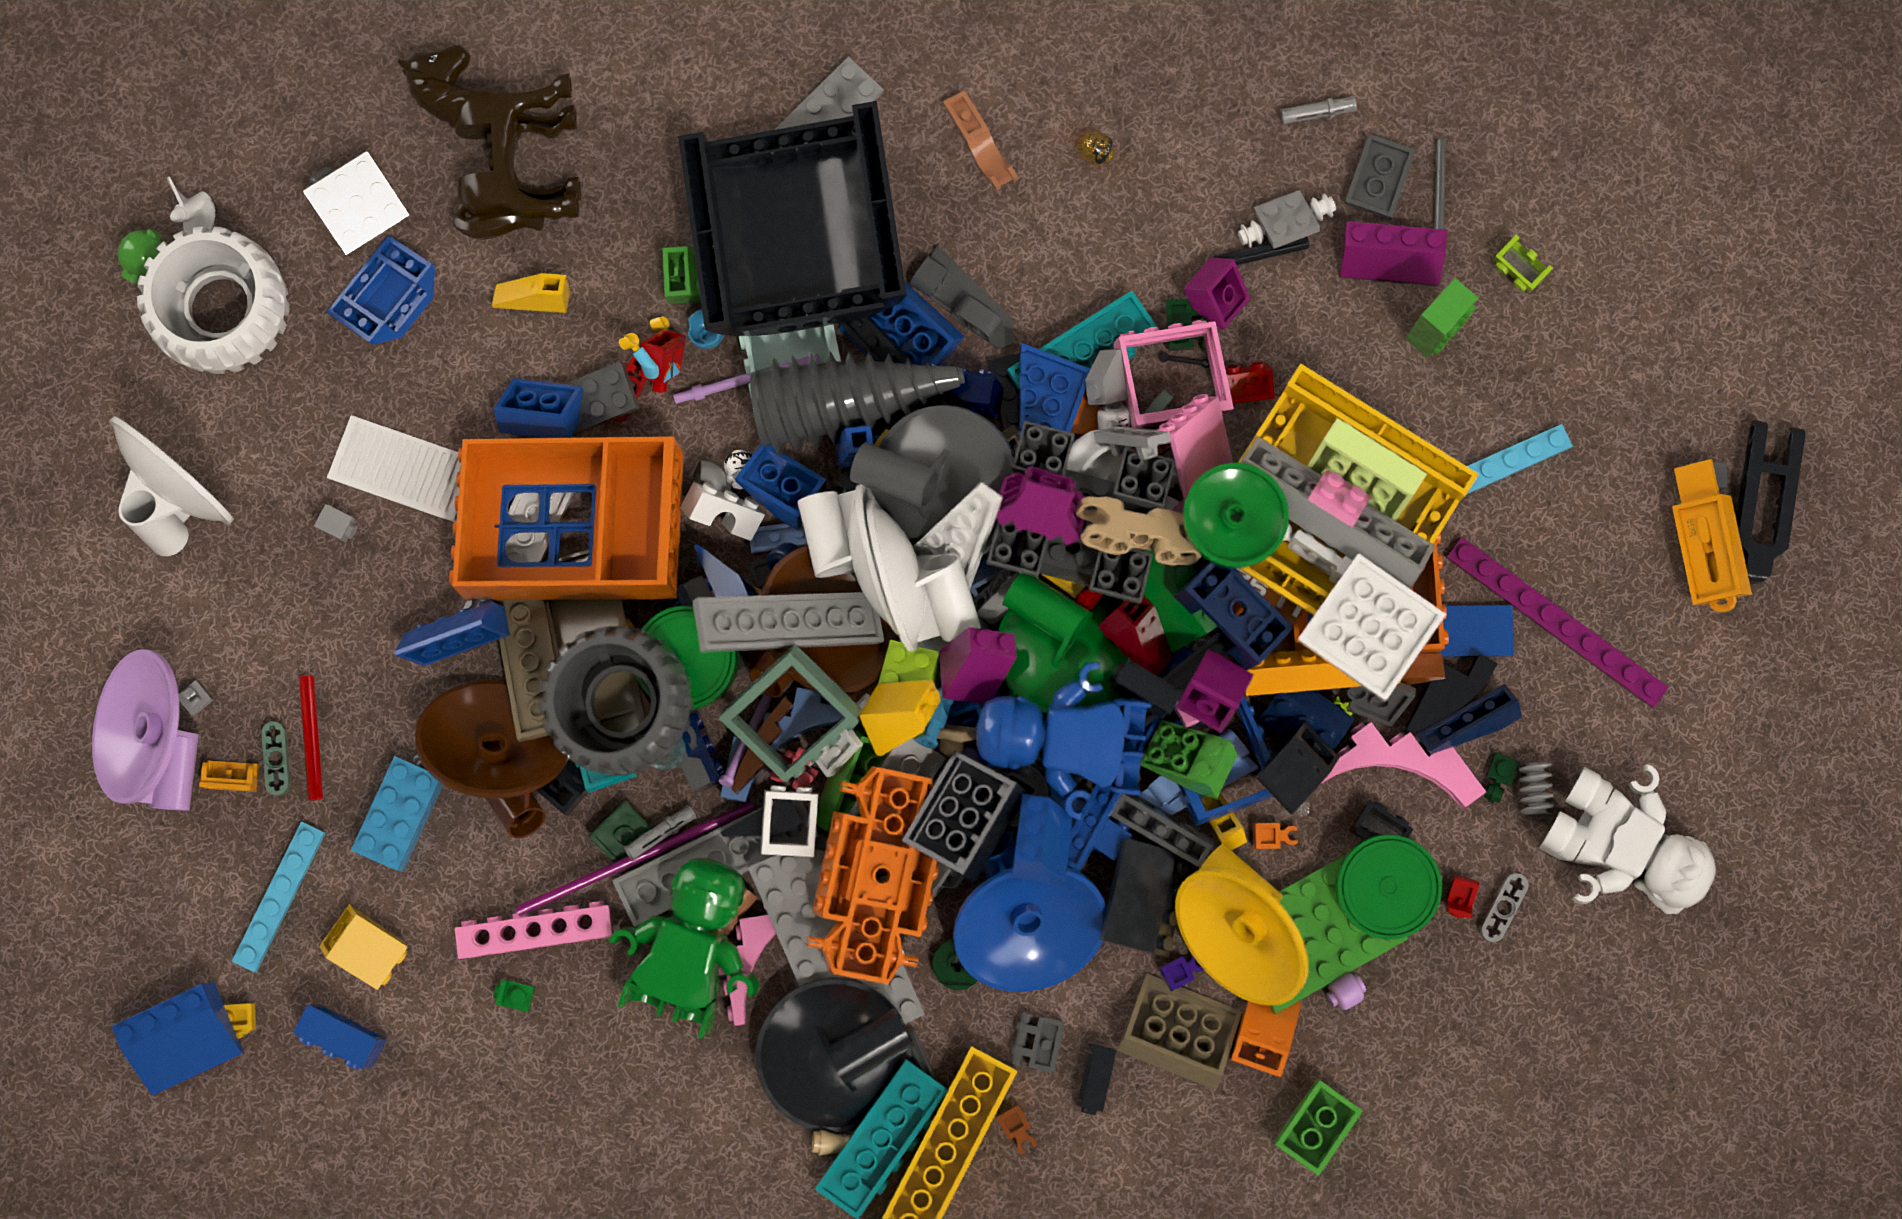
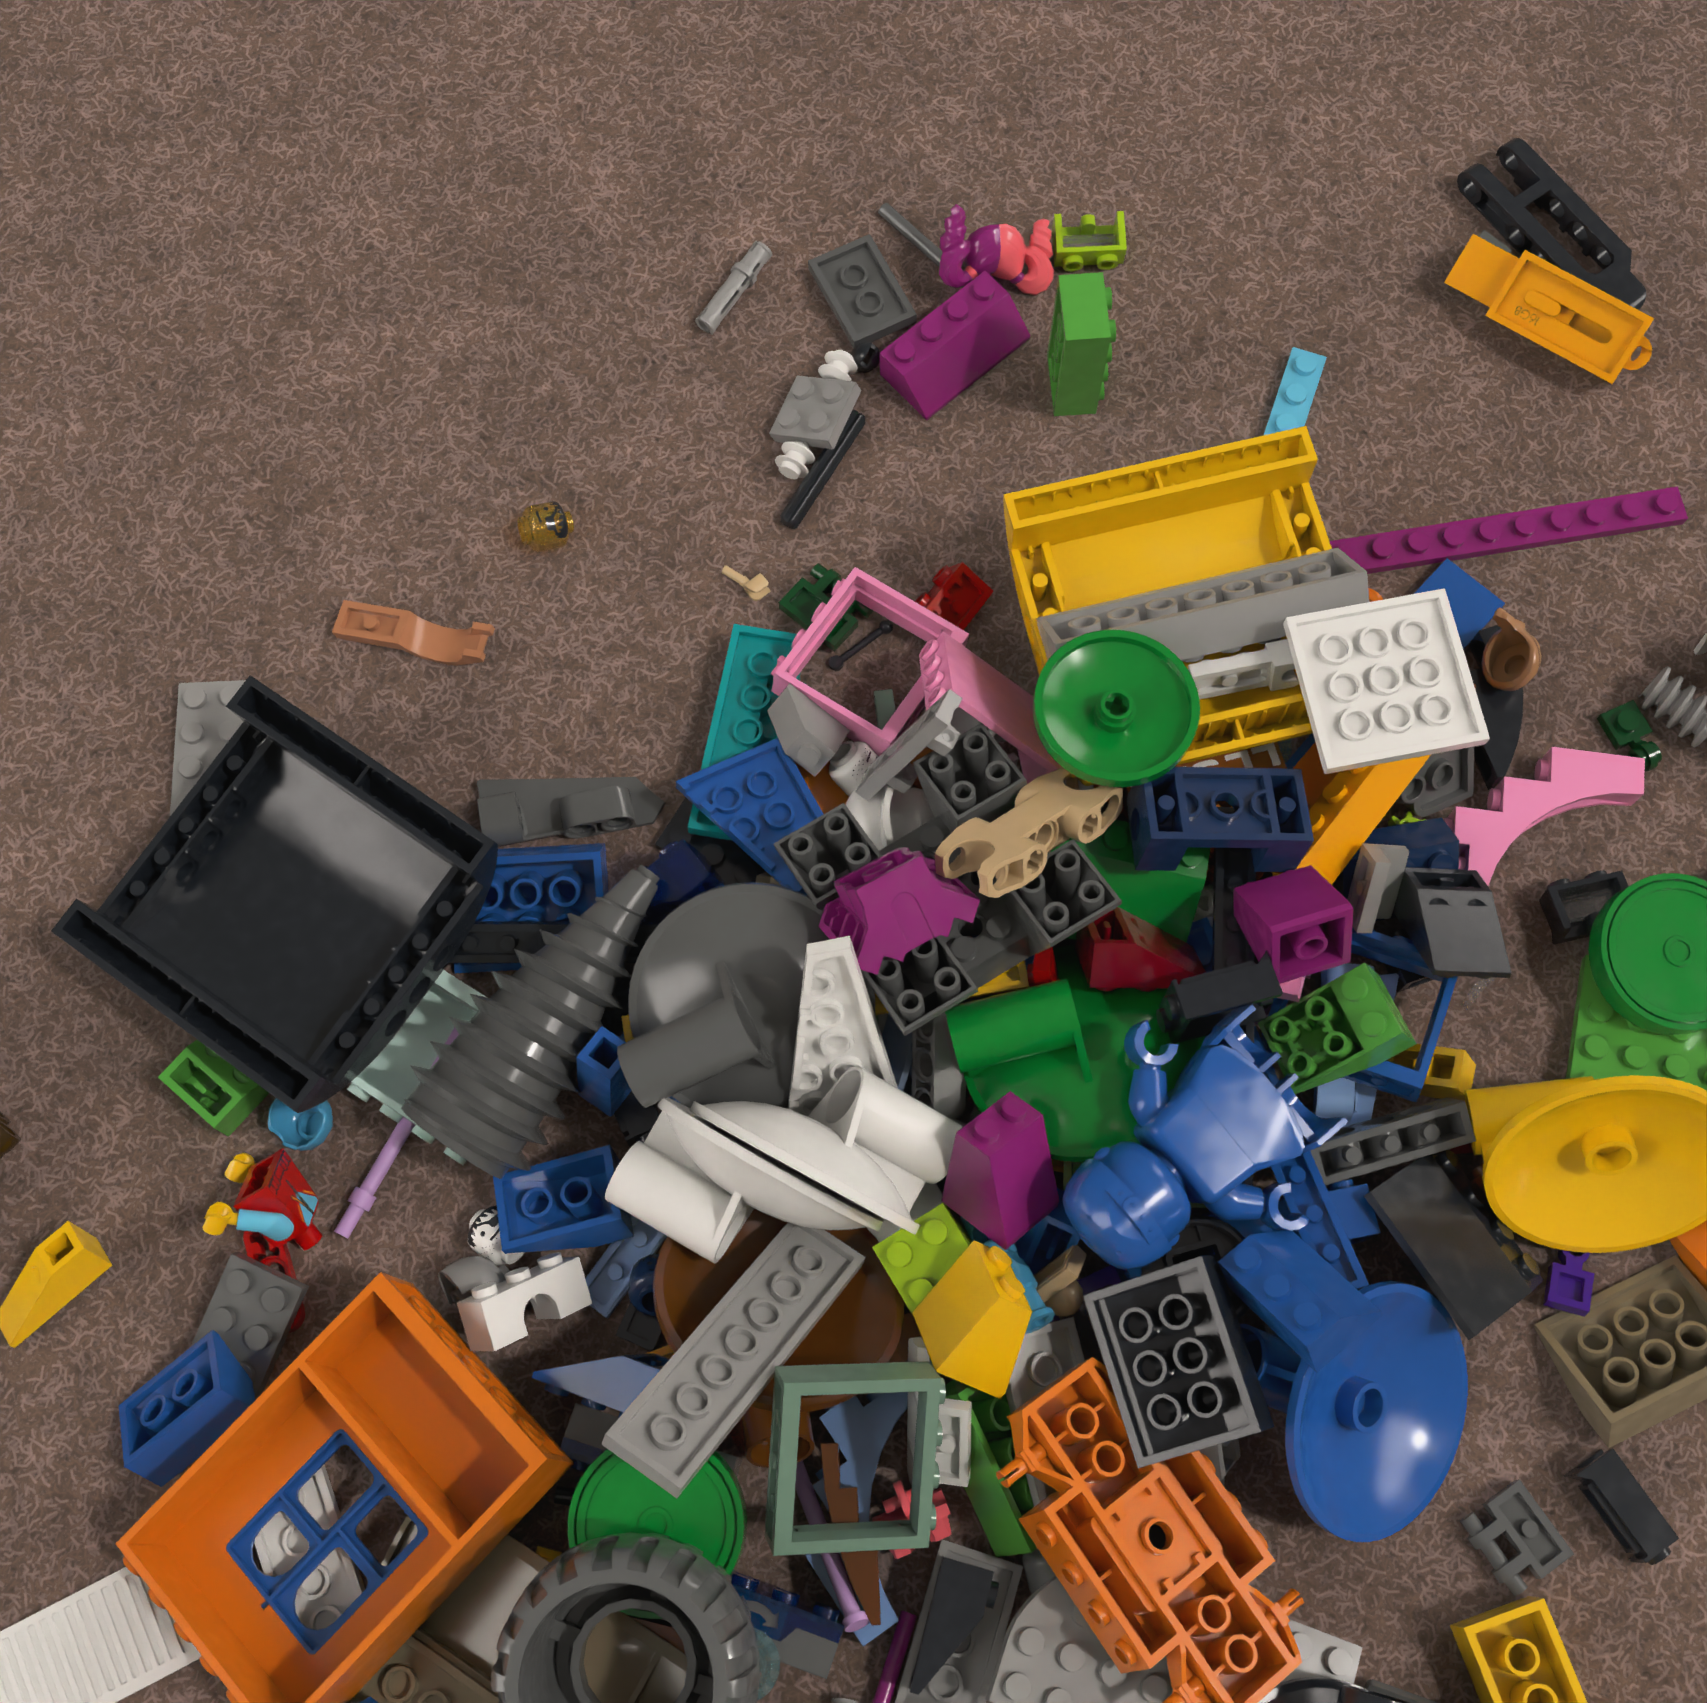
camera: 45 degrees left, 10 degrees down
(788, 849) = (1012, 1623): white window -> none
(945, 973) = (1329, 1569): dark green plate -> none
(1015, 1125) = (1602, 1666): dark orange plate -> none
(1165, 281) = (755, 588): none -> tan hand
(1218, 291) = (822, 541): magenta slope -> none
(1270, 836) = (1489, 1032): orange plate -> none
(1284, 715) = (1376, 883): none -> light grey panel
(1339, 498) = (1196, 588): bright pink plate -> none
(1343, 209) = (859, 354): none -> black hinge
(1368, 466) = (1188, 536): yellowish green slope -> none
(1464, 224) = (998, 251): none -> hair
(1473, 721) = (1549, 704): dark blue slope -> none
(1476, 680) = (1510, 654): none -> medium nougat hat

